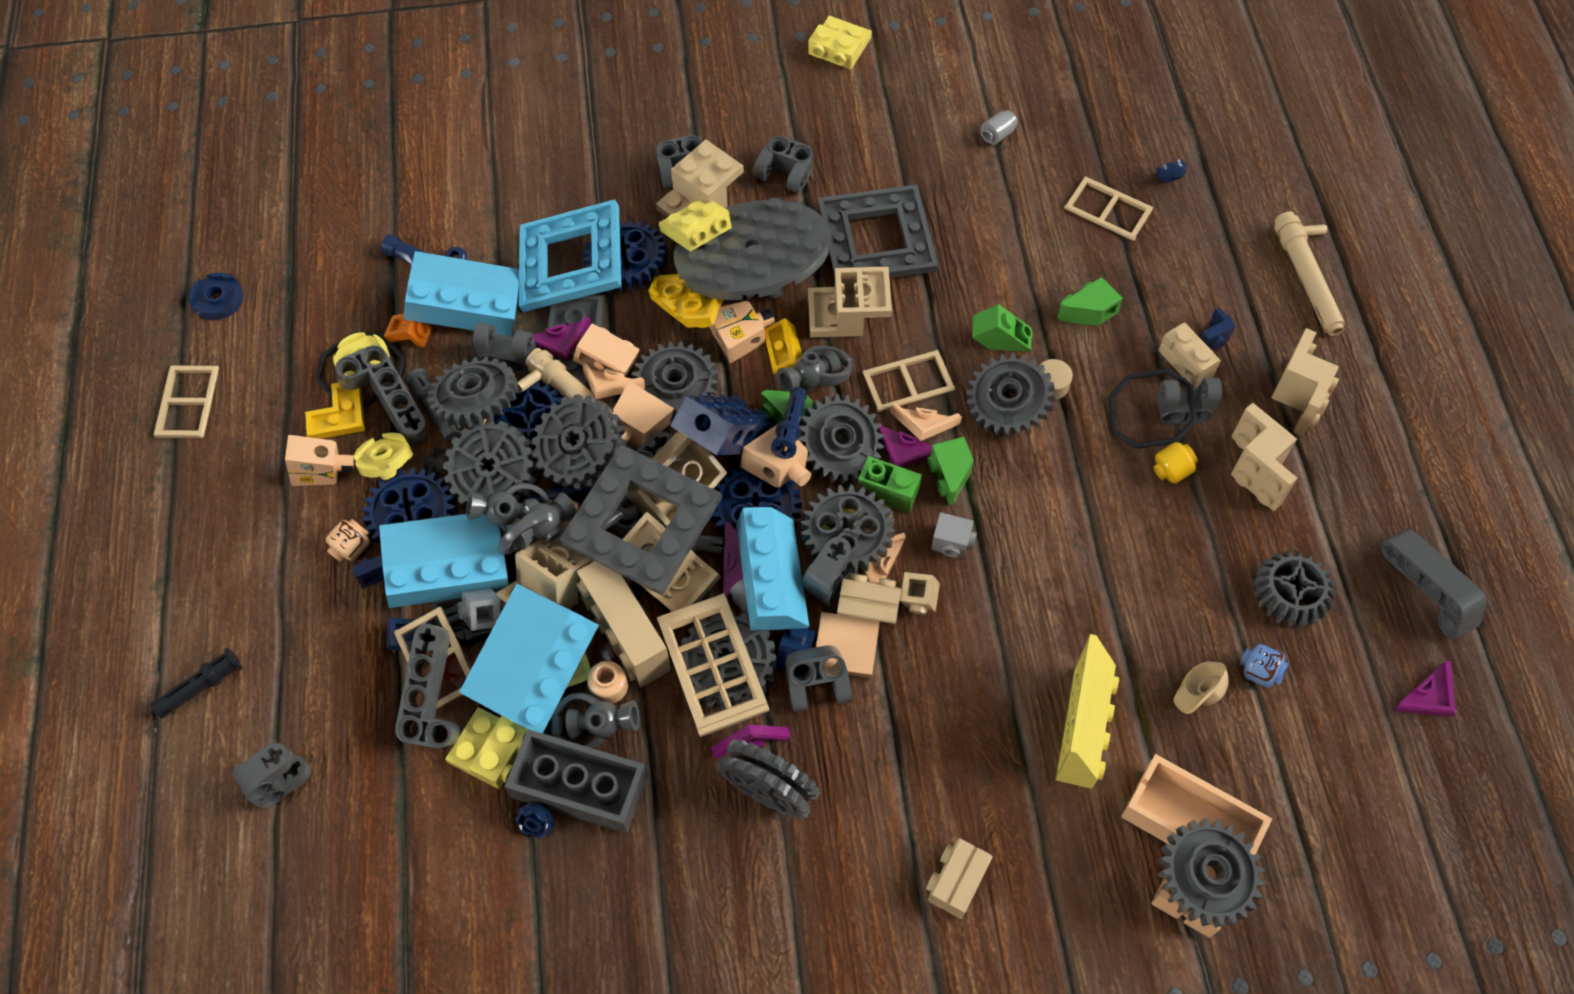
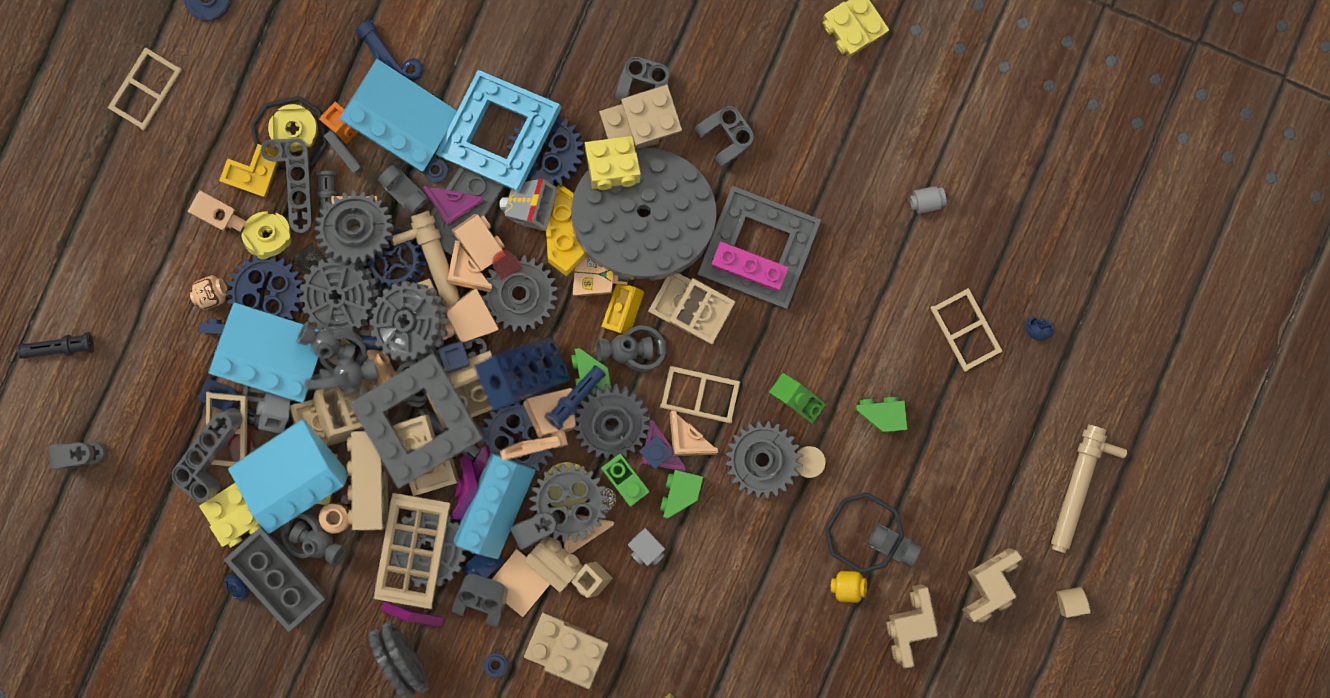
camera: 30 degrees right, 25 degrees up
(425, 351) = (344, 153): none -> dark grey tile
(524, 317) = (436, 177): none -> dark blue plate
(637, 298) = (531, 205): none -> light grey torso
(644, 354) = (505, 263): none -> clear red tile
(647, 445) = (454, 357): none -> dark blue plate
(732, 572) = (465, 489): none -> magenta tile
(777, 487) = (530, 446): none -> light nougat tile
(875, 733) = (495, 672): none -> dark blue plate
(880, 241) = (749, 266): none -> dark pink brick
(902, 445) = (655, 452): none -> dark blue plate
(940, 676) = (566, 650): none -> tan bracket
(1189, 354) = (925, 505): tan brick -> none
(1220, 330) = (958, 502): dark blue bracket -> none
(1387, 365) = (1072, 602): none -> tan brick

